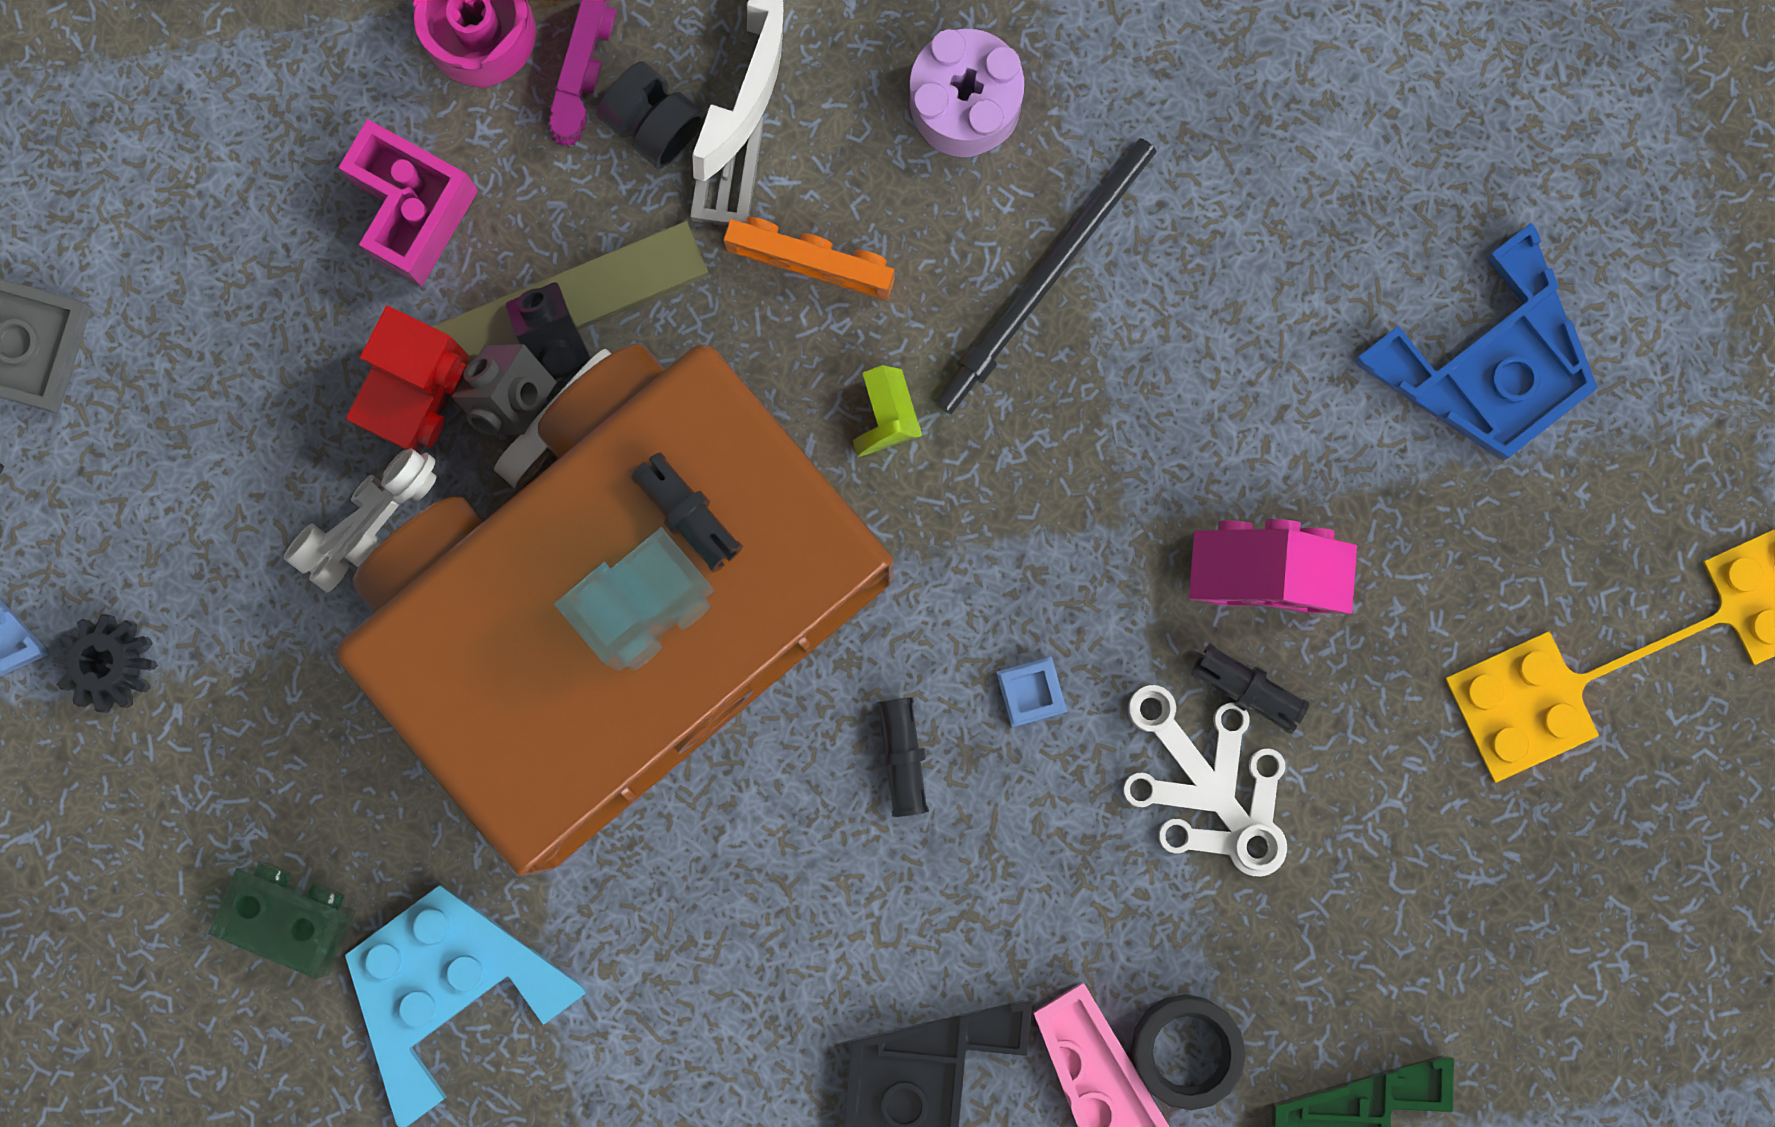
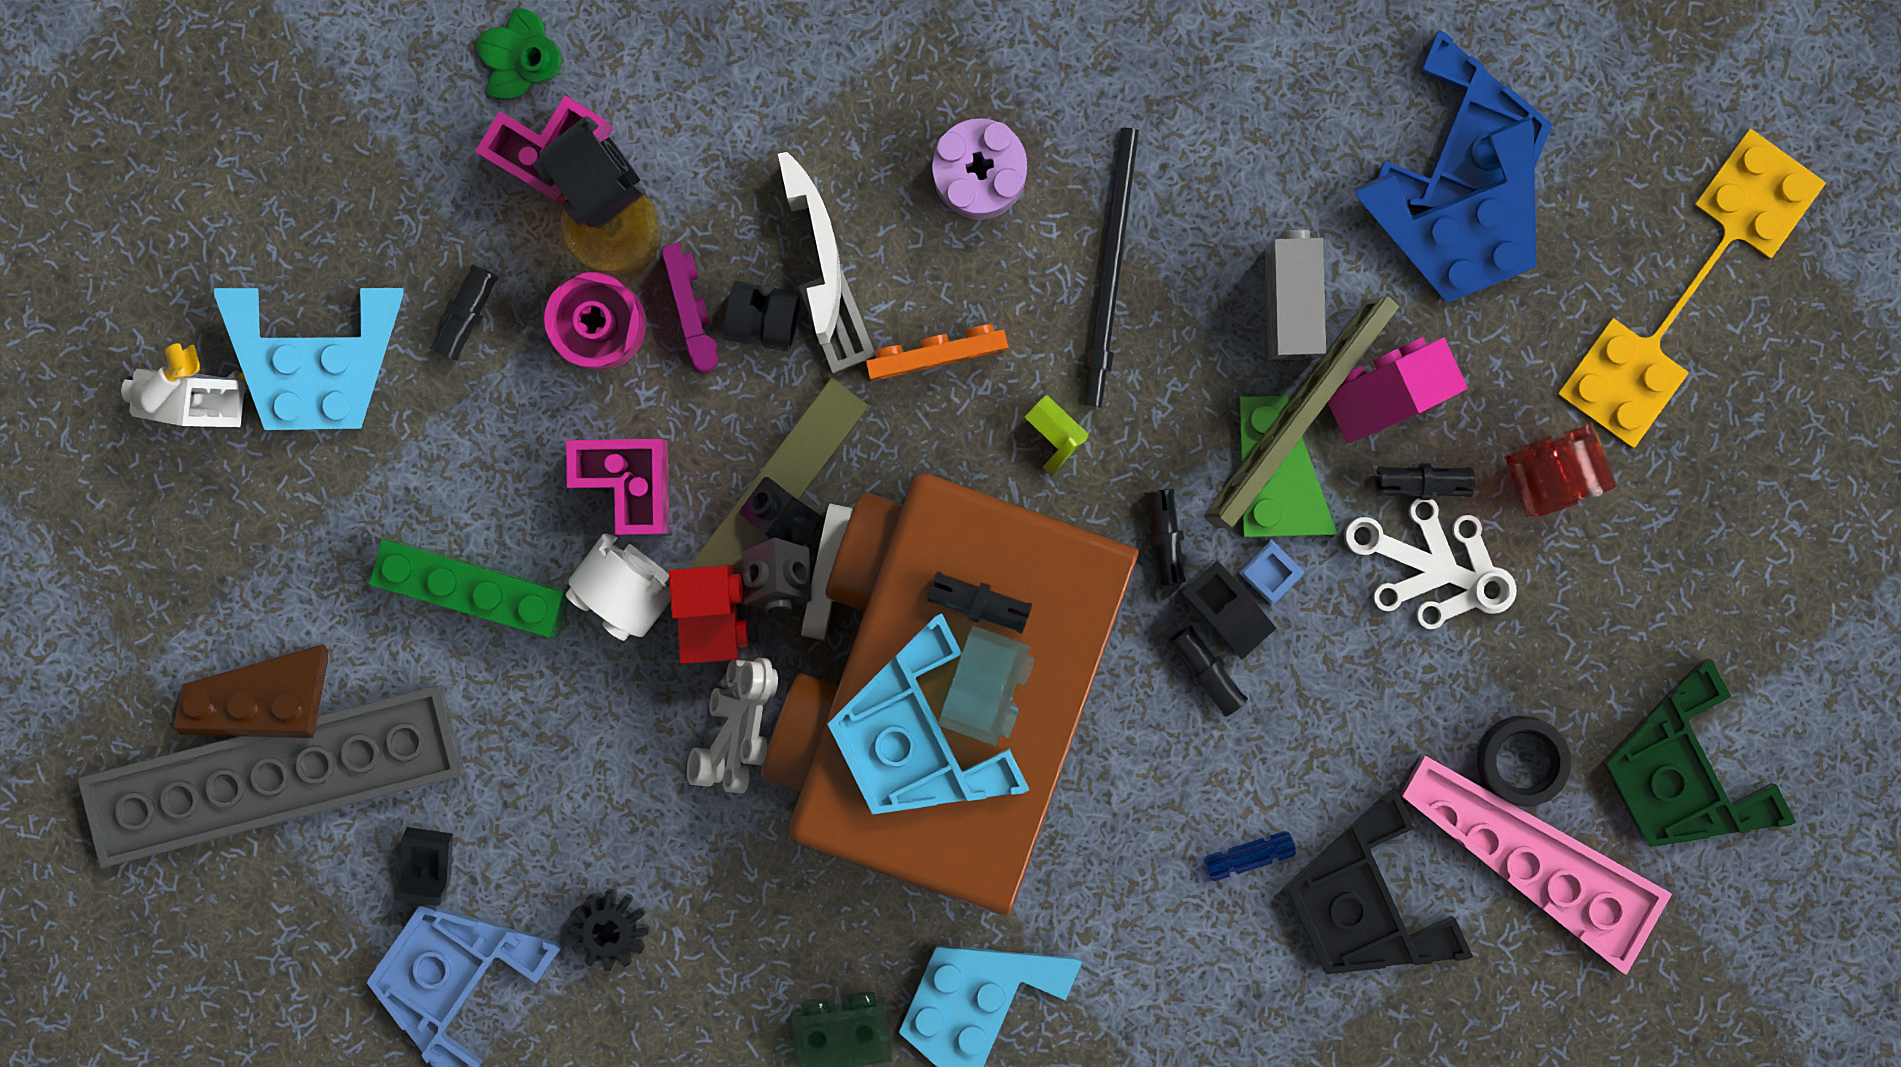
camera: 30 degrees left, 5 degrees up
(179, 220) = (469, 588): none -> green brick
(329, 305) = (620, 588): none -> white brick
(502, 621) = (899, 747): none -> medium azure wing
(833, 984) = (1250, 856): none -> clear blue axle
(939, 588) = (1165, 537): none -> black pin
(961, 701) = (1227, 608): none -> black slope
(1097, 591) = (1292, 497): none -> bright green wing
(1157, 534) = (1300, 412): none -> olive tile
(1221, 409) = (1295, 297): none -> light grey brick
(1401, 755) = (1560, 471): none -> clear red brick
(1446, 458) = (1473, 236): none -> blue wing

